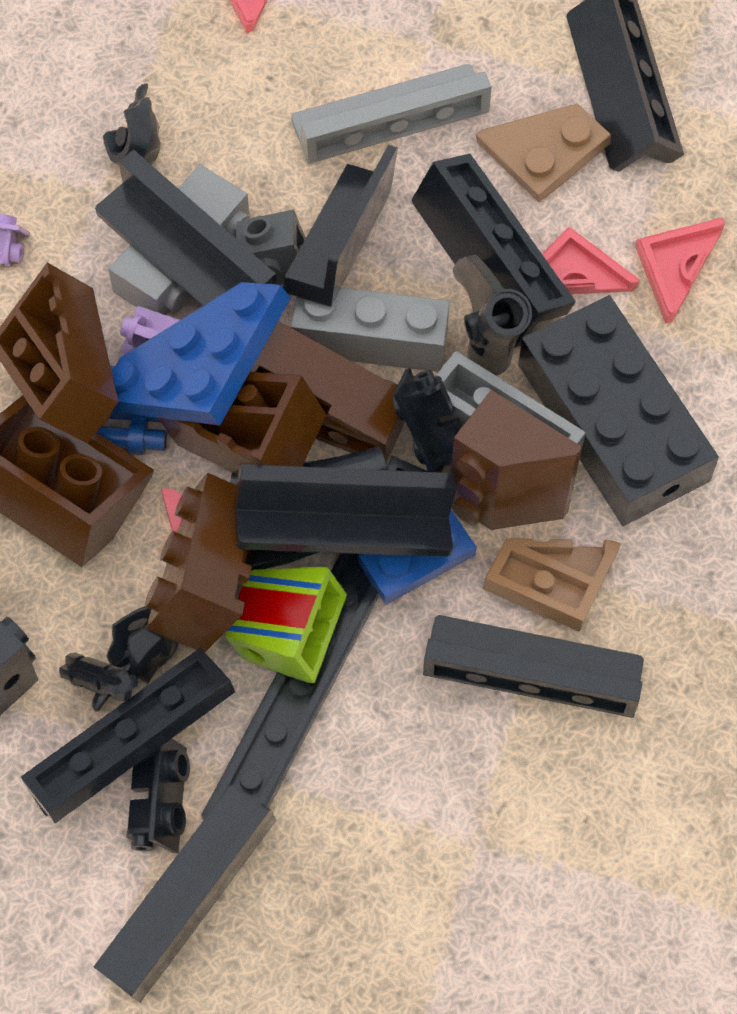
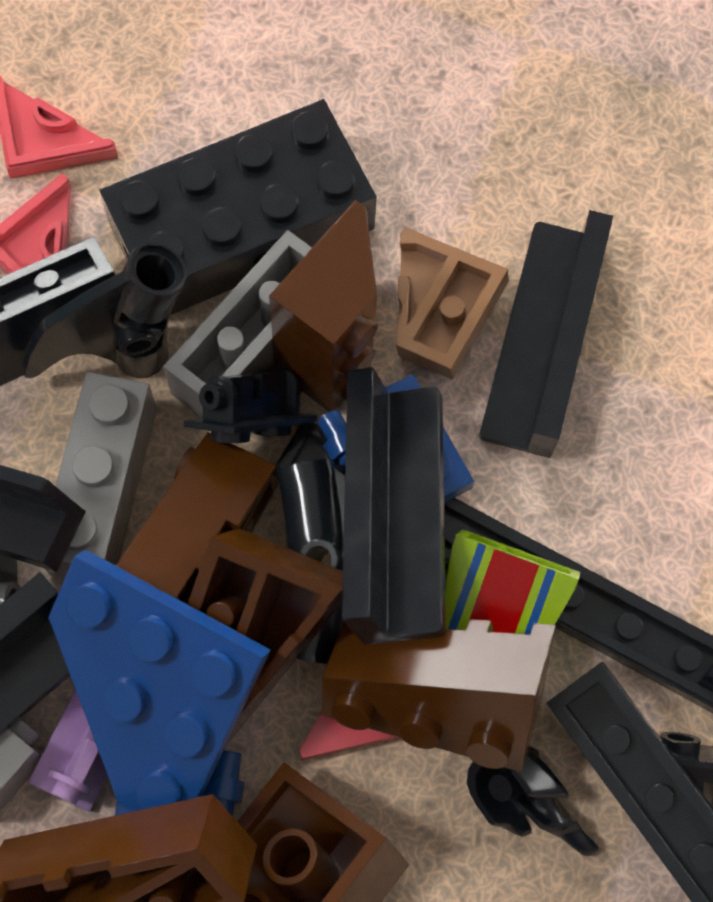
camera: 90 degrees left, 5 degrees up
(98, 676) = (572, 839): black axle -> none

